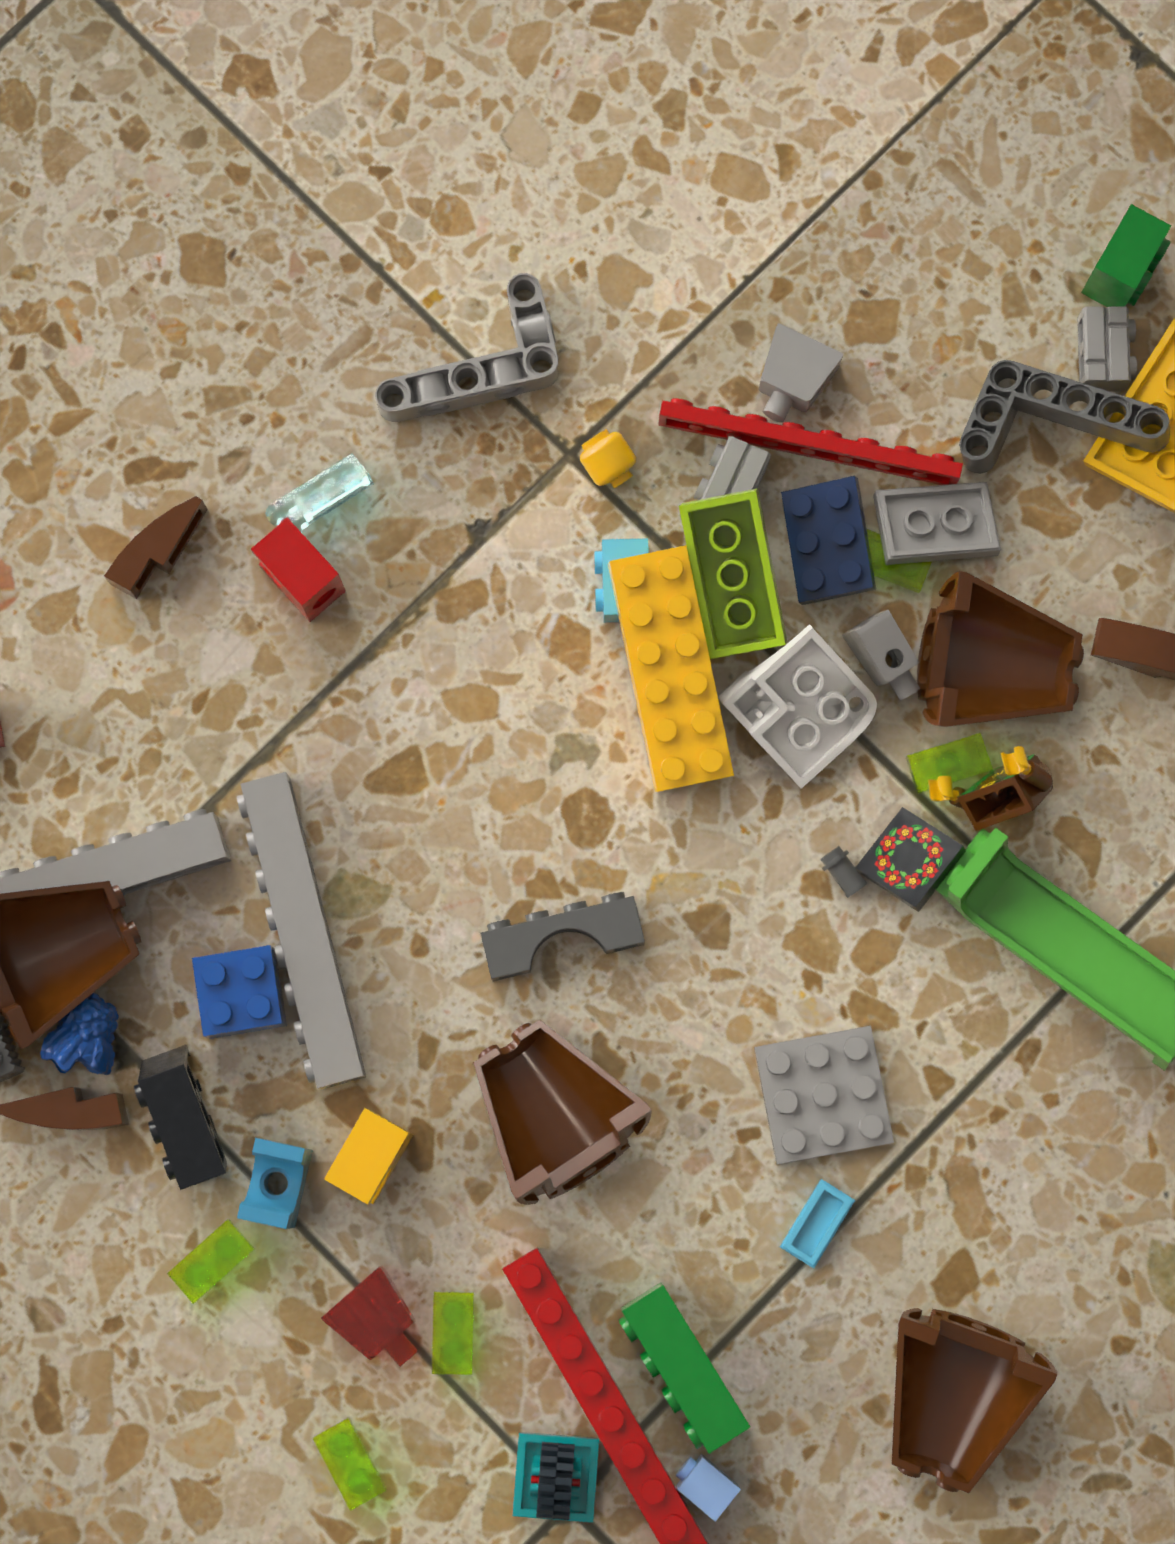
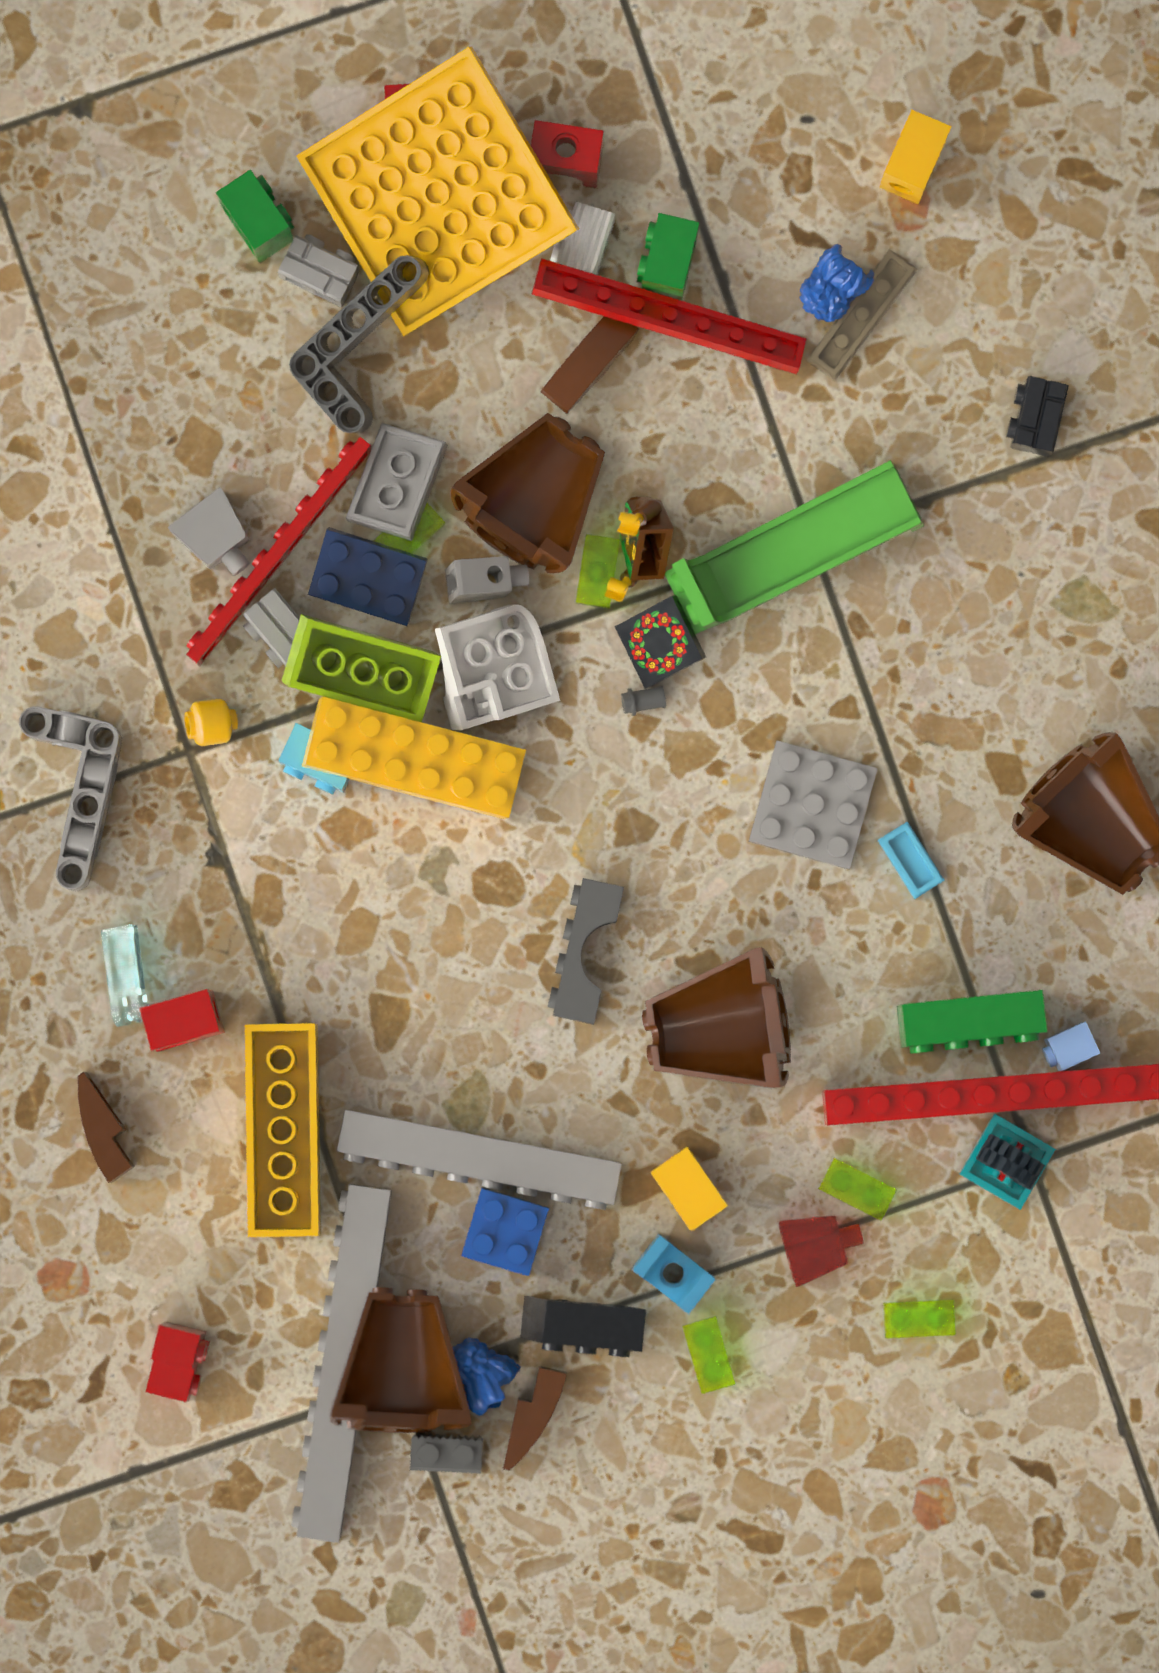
camera: 65 degrees left, 5 degrees up
(236, 721) = (282, 1130): none -> yellow brick

